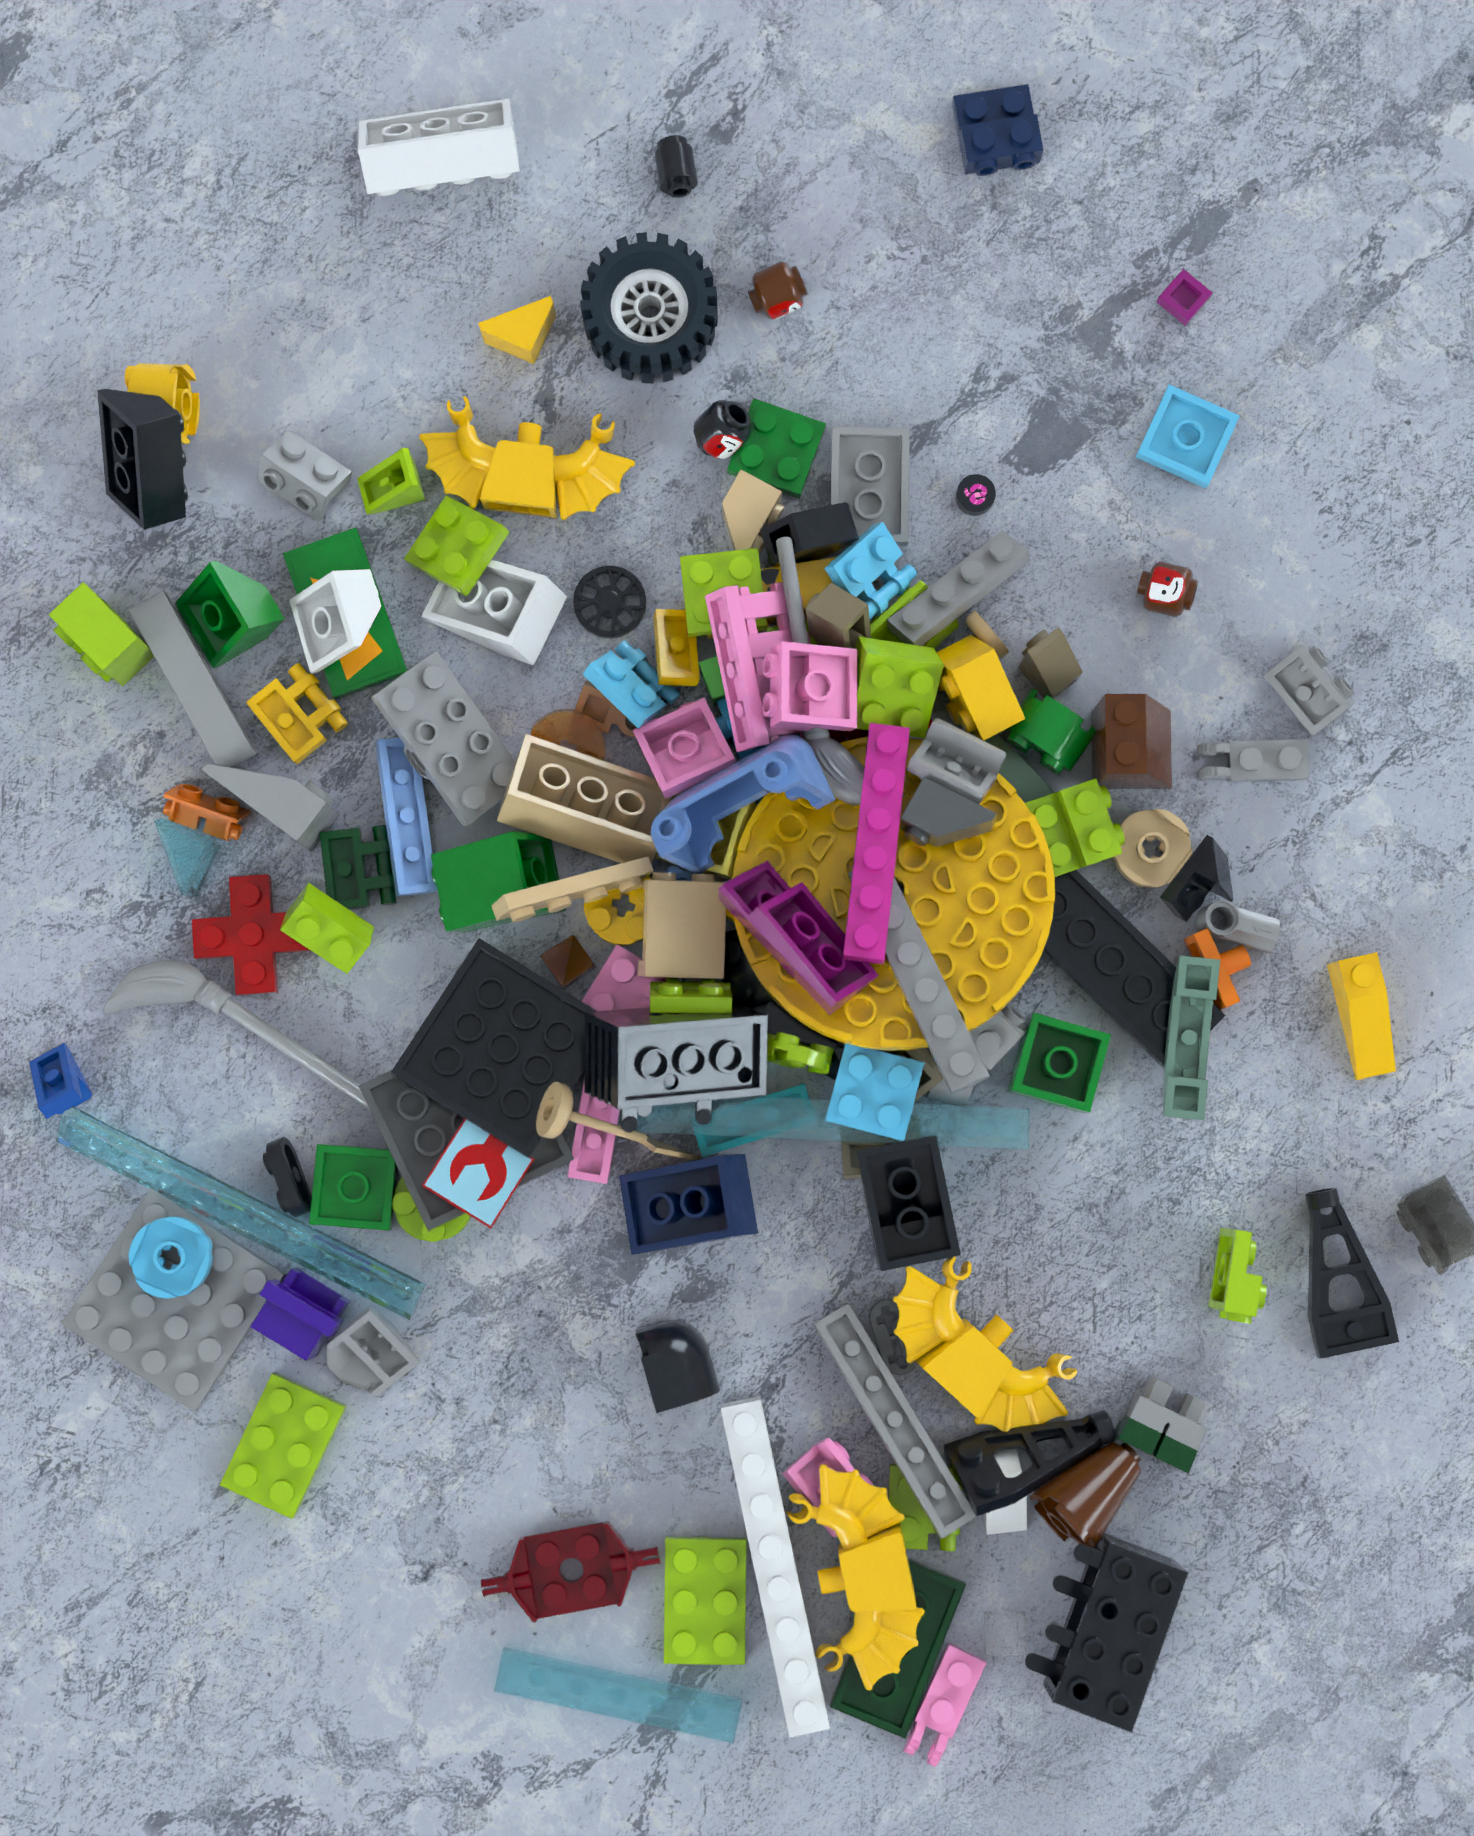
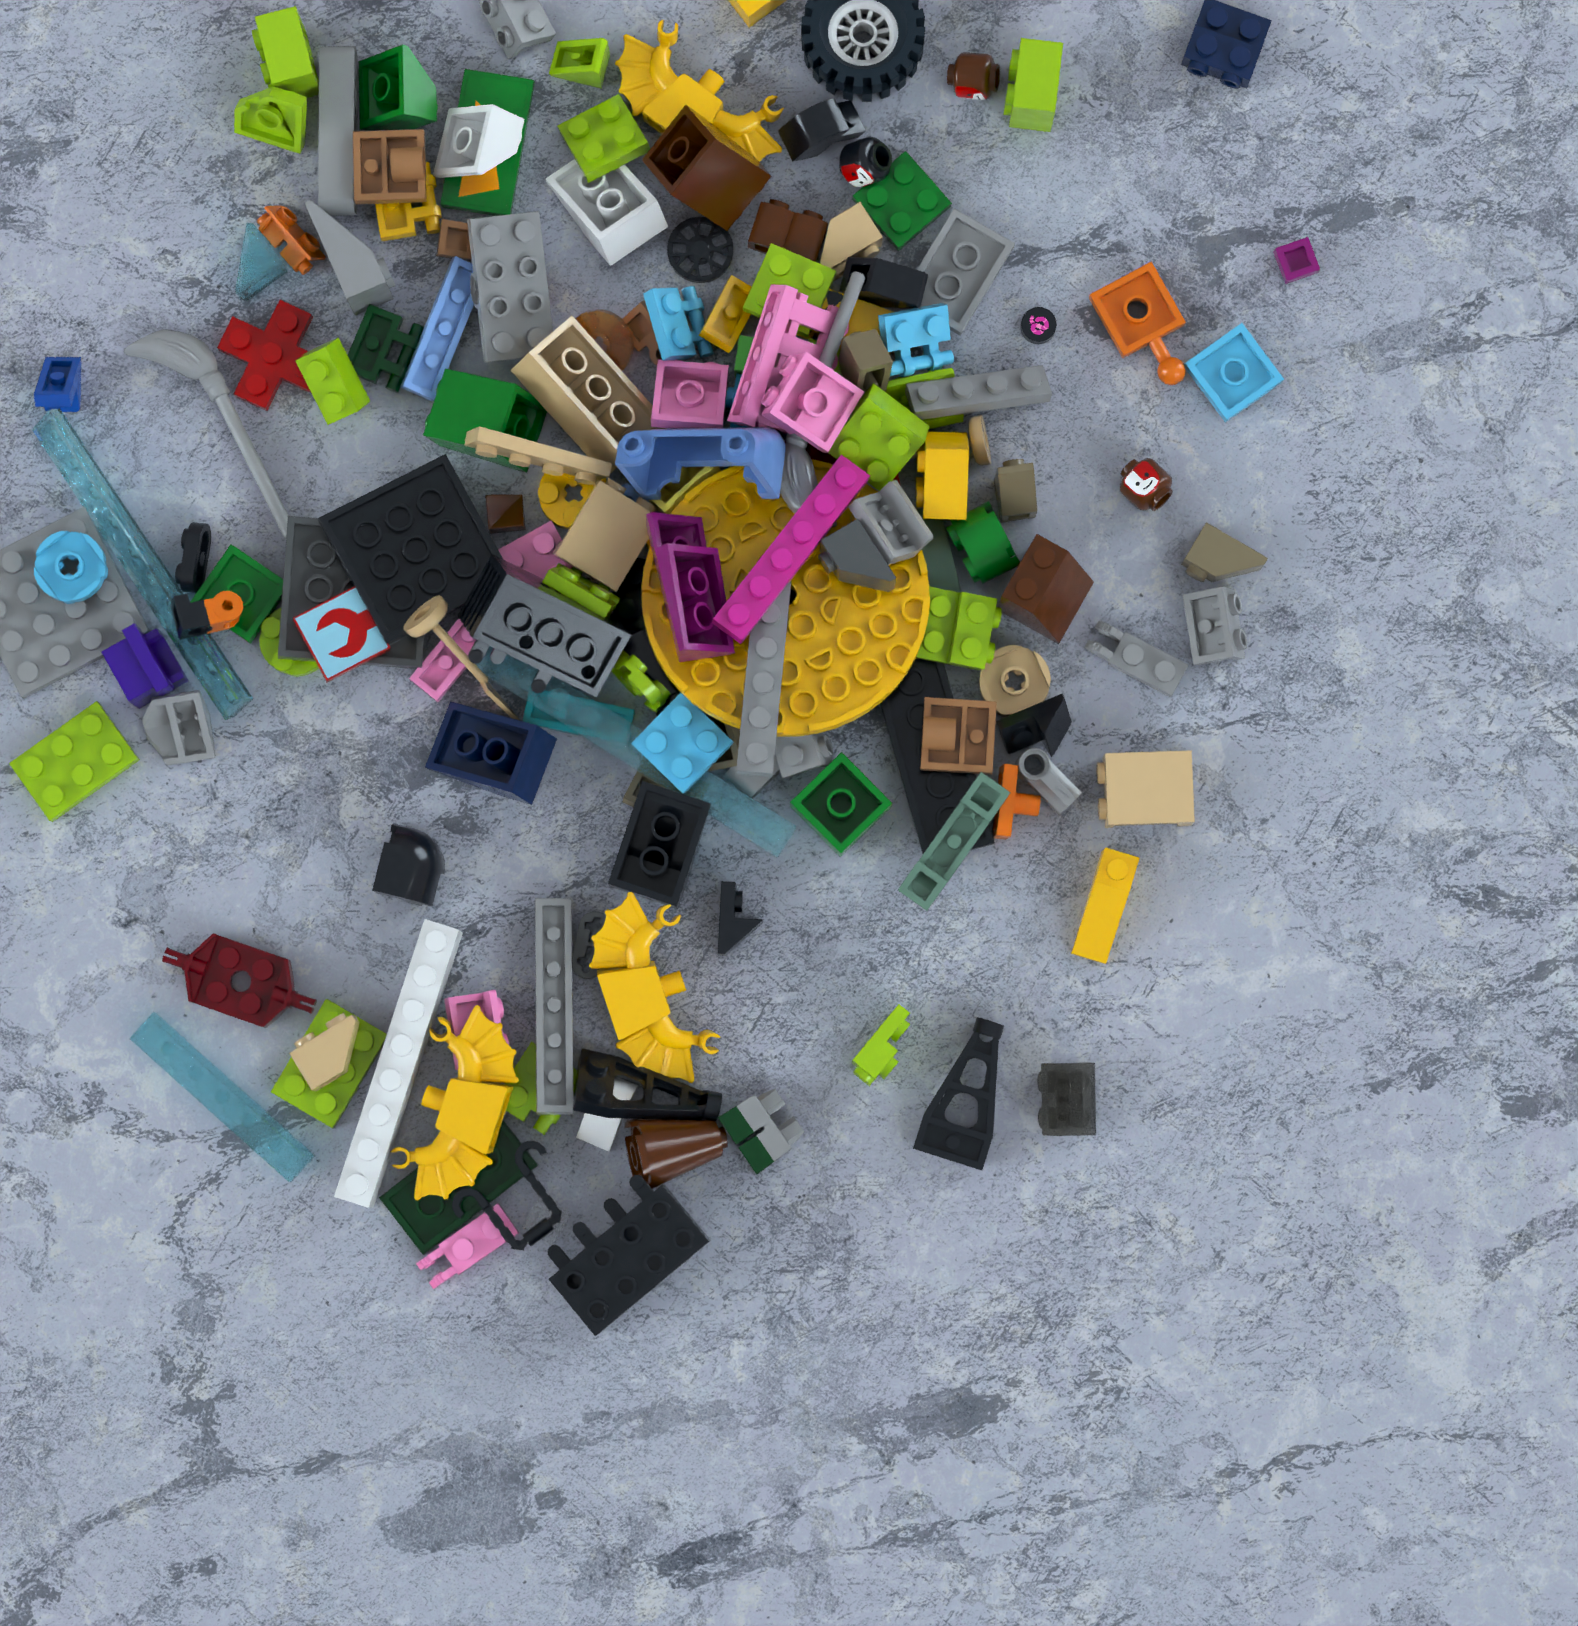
camera: 30 degrees right, 0 degrees up
(122, 703) = (273, 118): none -> lime plate
(264, 688) = (389, 166): none -> medium nougat plate
(334, 1230) = (205, 615): none -> leg
(367, 724) = (454, 240): none -> medium nougat plate
(574, 519) = (705, 168): none -> reddish brown slope
(659, 421) = (820, 127): none -> black brick
(683, 535) = (787, 229): none -> reddish brown brick
(701, 1600) = (328, 1054): none -> tan slope
(843, 265) = (1035, 87): none -> lime brick
(1008, 1649) = (540, 1229): none -> black piece
(1023, 1244) = (731, 929): none -> black slope
(1088, 424) = (1134, 334): none -> orange plate
(1133, 932) = (958, 735): none -> medium nougat plate
(1276, 617) = (1220, 556): none -> dark tan slope
(1339, 881) = (1146, 788): none -> tan panel

